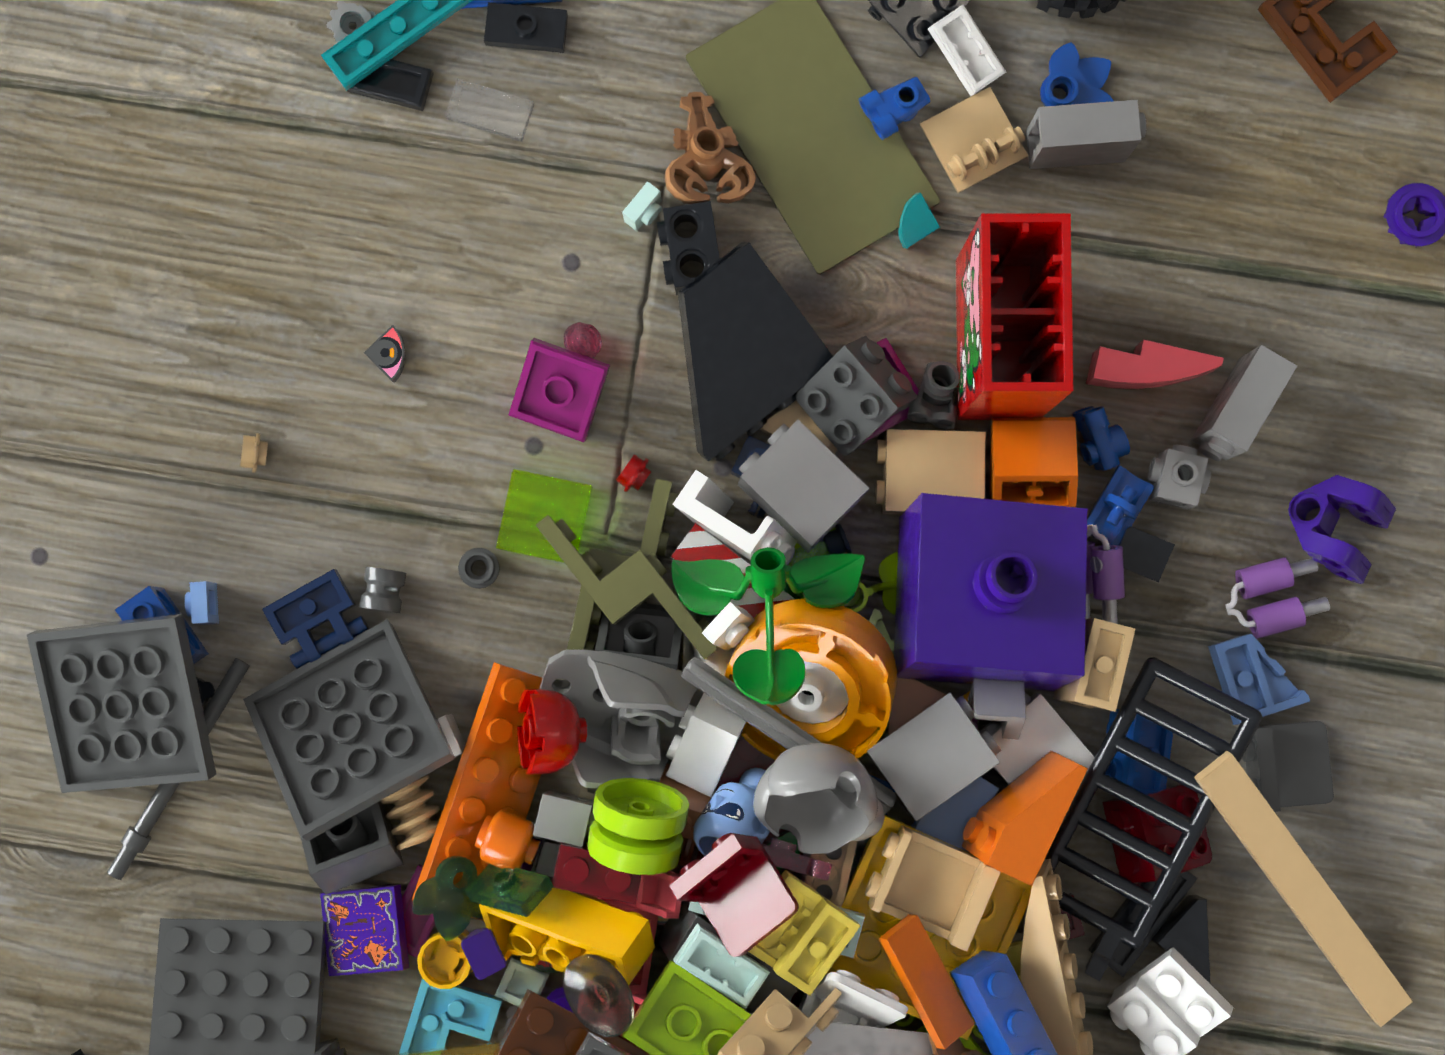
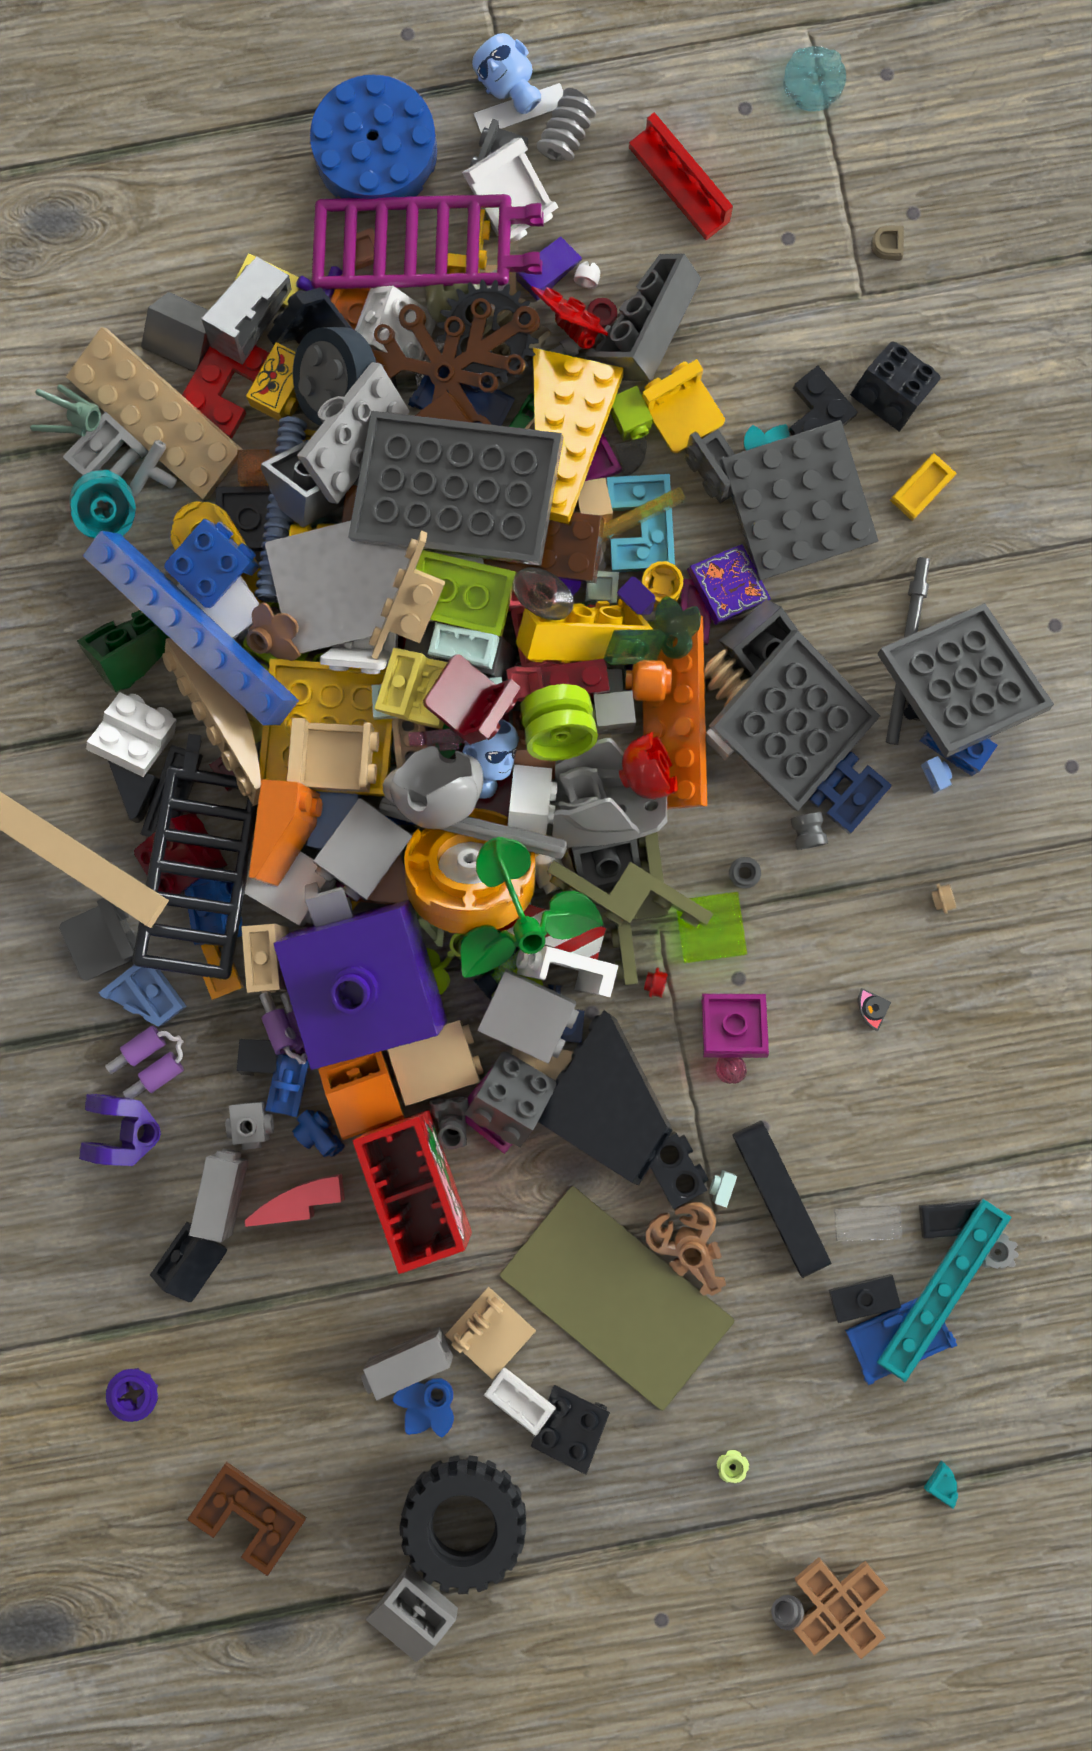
camera: 160 degrees right, 0 degrees up
(79, 967) = (923, 486): none -> yellow tile
(579, 171) = (781, 1199): none -> black beam
(728, 627) = (544, 889): white plate -> none
(888, 110) = (564, 1330): blue plate -> none
(916, 221) = (512, 1252): teal tile -> none
(926, 981) = (313, 687): orange tile -> none
(1163, 651) = (215, 986): none -> light orange plate
(1308, 338) = (187, 1264): none -> black panel

